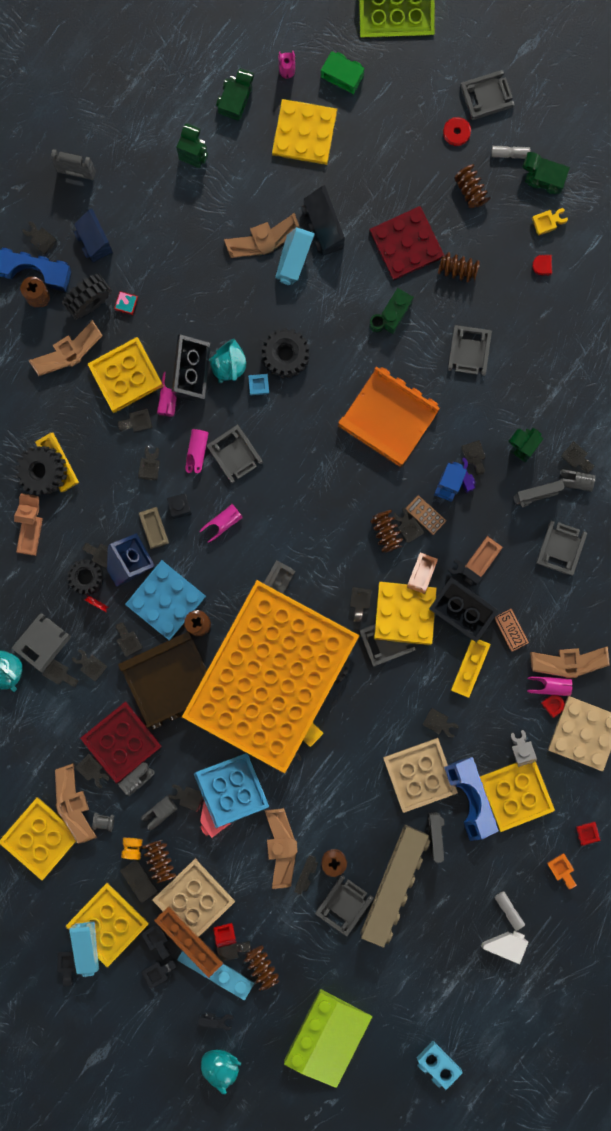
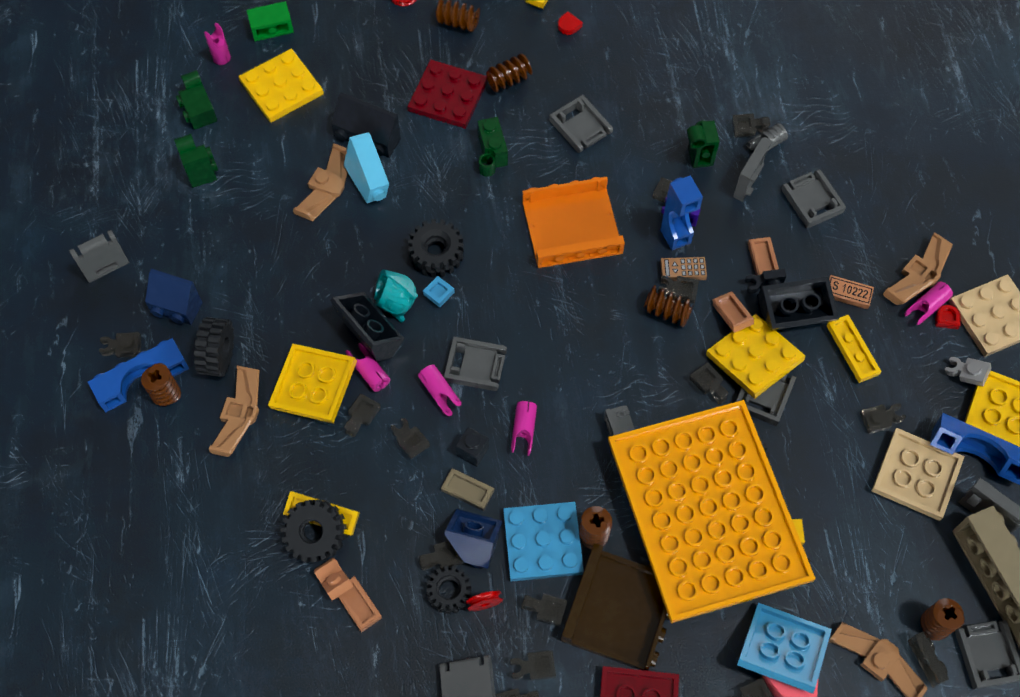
camera: 45 degrees left, 20 degrees down
(126, 303) = (254, 329): tile -> none

